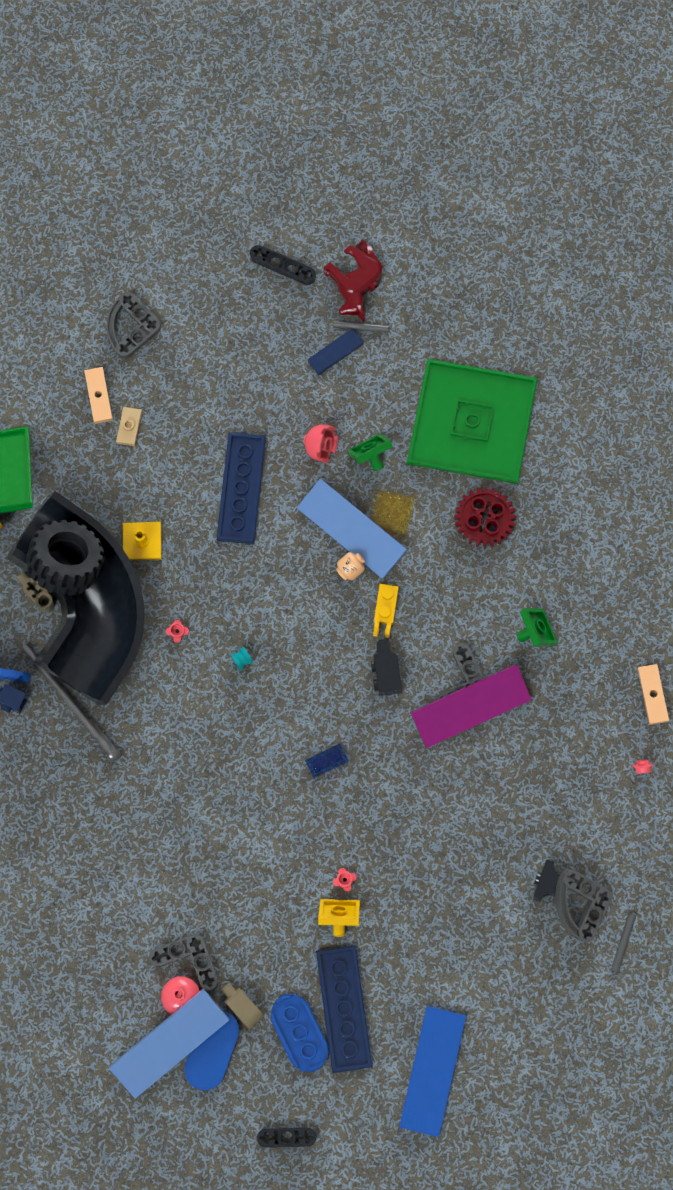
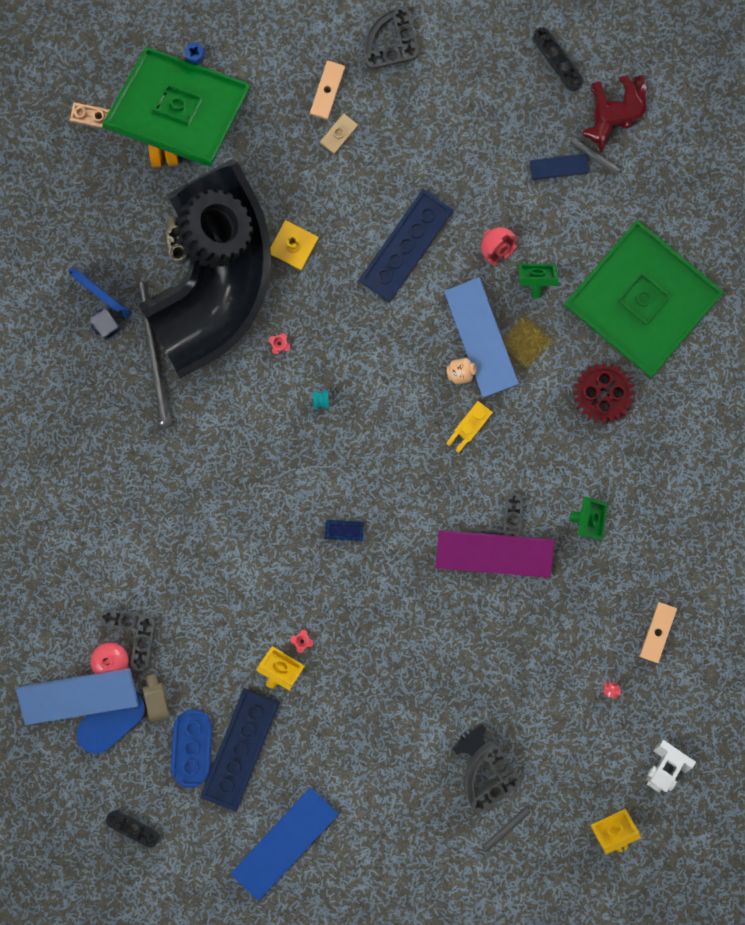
camera: 25 degrees right, 10 degrees up
(387, 670) = (440, 481): black hinge -> none

